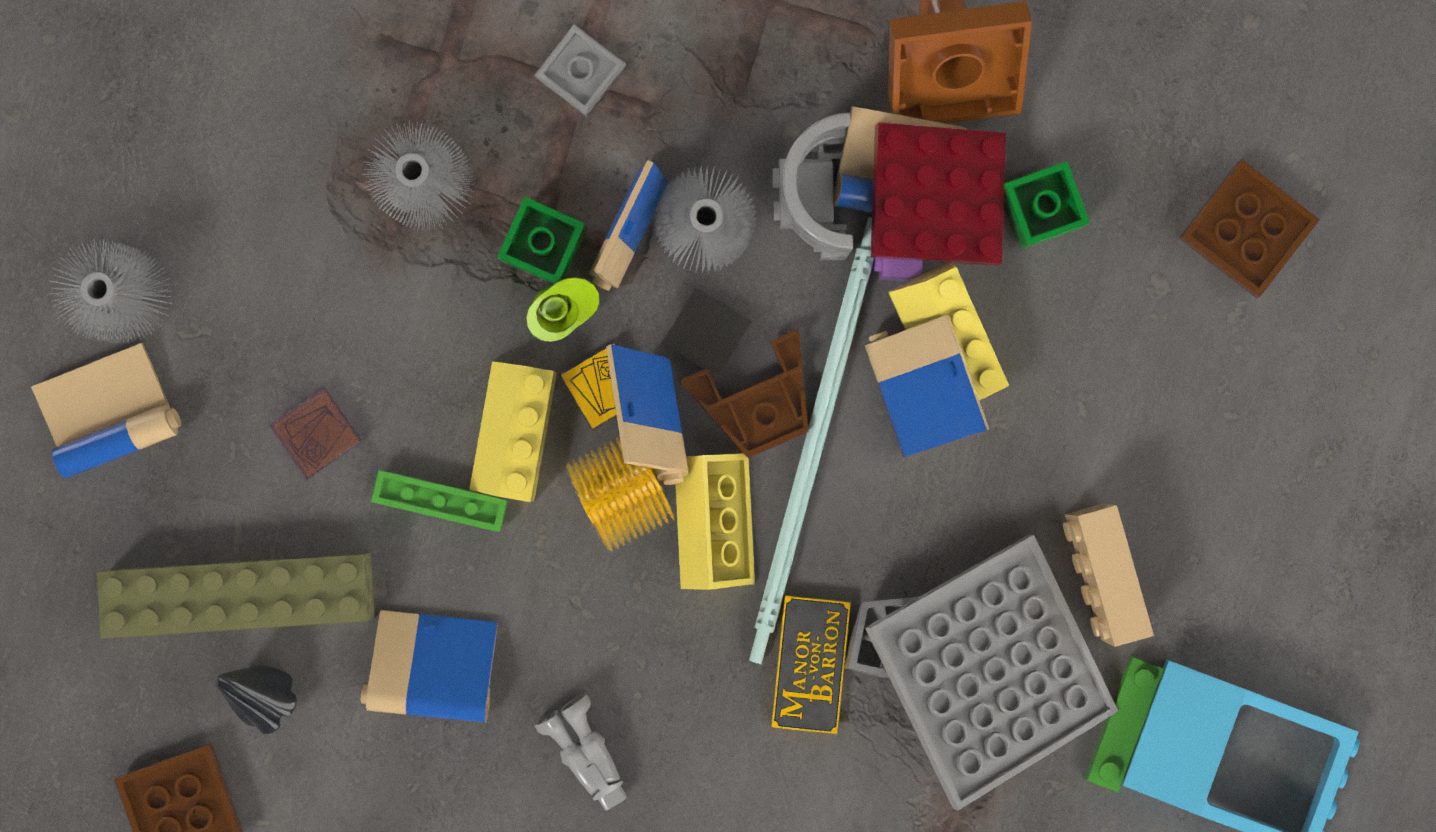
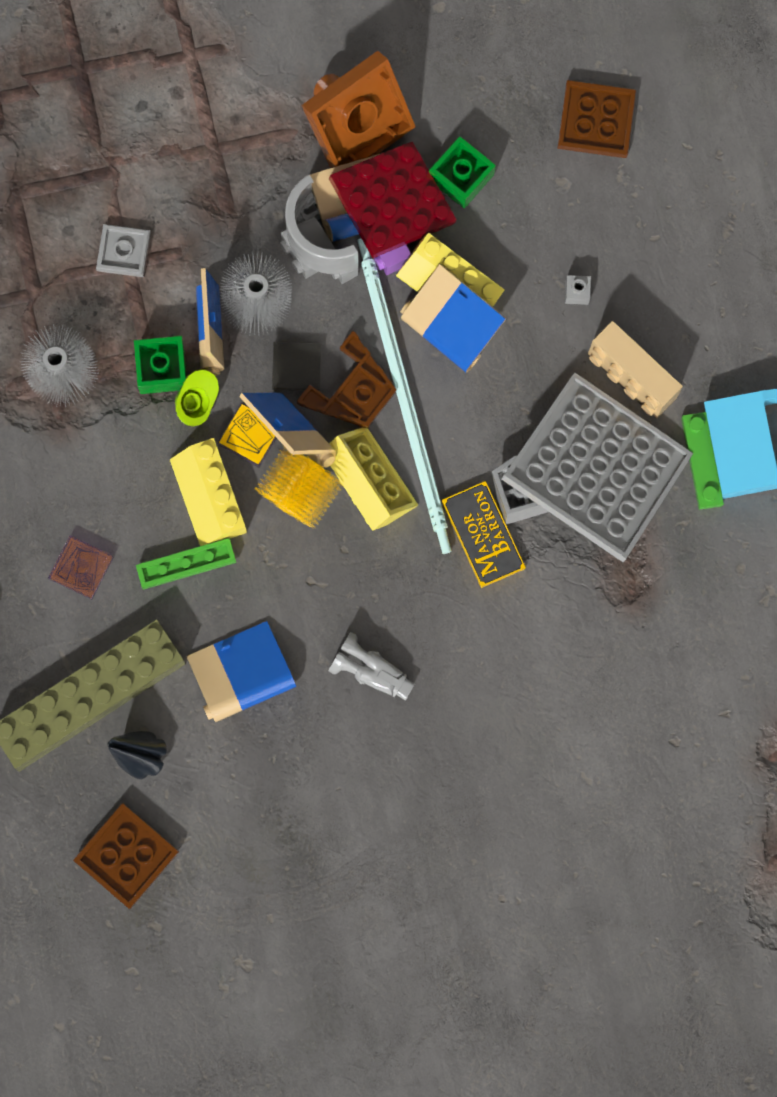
camera: 30 degrees left, 10 degrees down
(1089, 436) = (575, 296): none -> light grey plate

